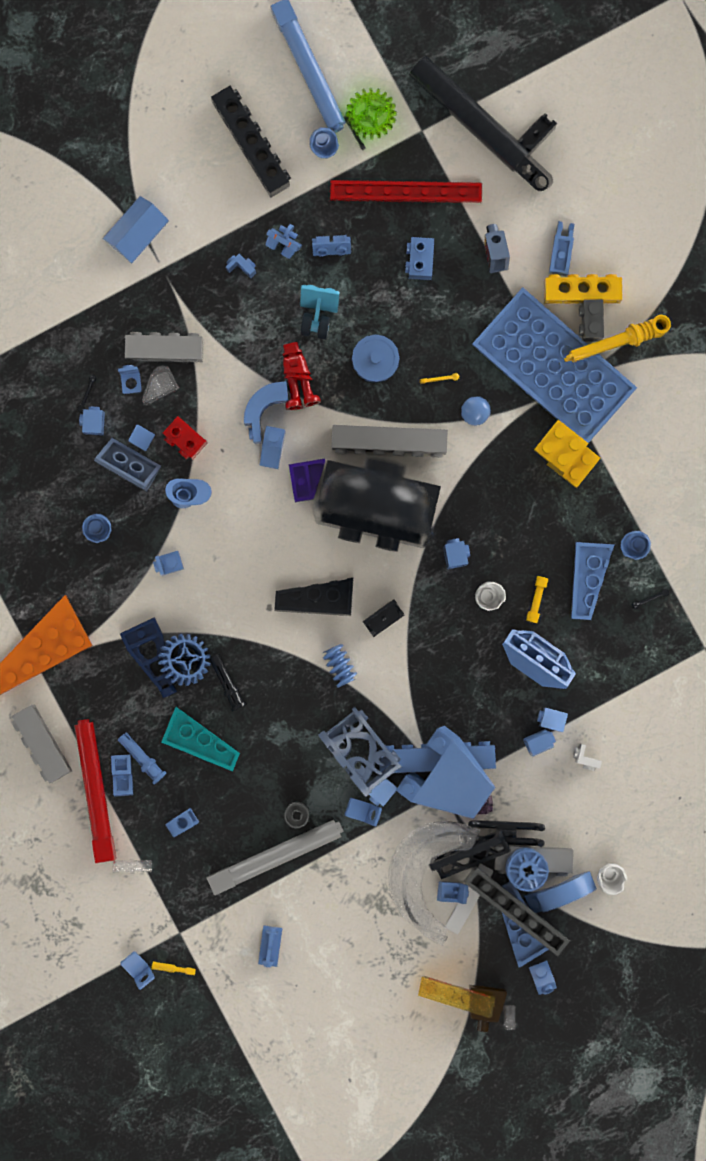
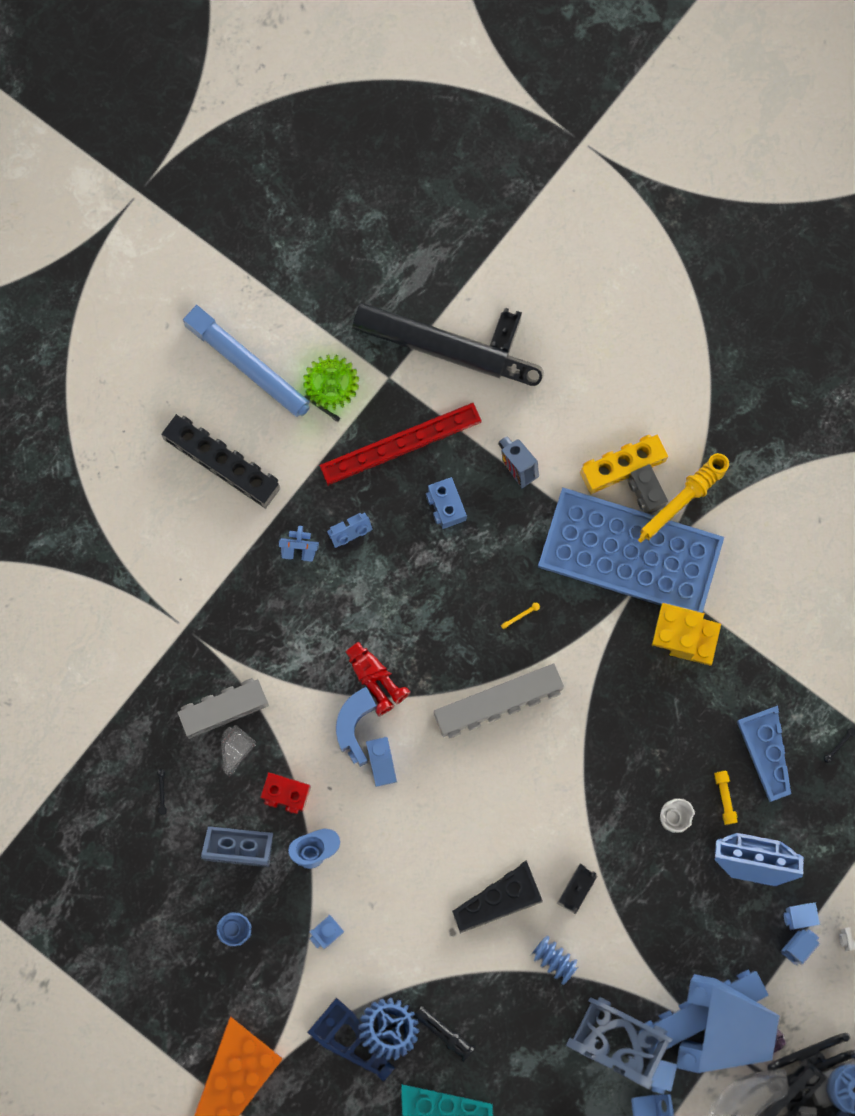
camera: 25 degrees left, 10 degrees down
(92, 421) = (180, 818): medium blue brick -> none
(127, 372) = (197, 749): medium blue bracket -> none
(136, 229) = (140, 599): medium blue slope -> none
(141, 437) = (239, 812): medium blue slope -> none
(246, 265) = (270, 587): medium blue bracket -> none
(306, 478) = (430, 779): dark purple wing -> none
(317, 299) = (361, 589): medium azure plate -> none
(324, 142) = (296, 430): medium blue hair -> none
(375, 358) = (446, 624): medium blue wheel -> none
(376, 504) = (521, 770): black piece -> none
(456, 553) = (622, 787): medium blue brick -> none
(475, 411) = (572, 632): medium blue hair -> none
(562, 251) = (584, 434): medium blue hinge -> none
(635, 545) = (799, 696): medium blue hair -> none

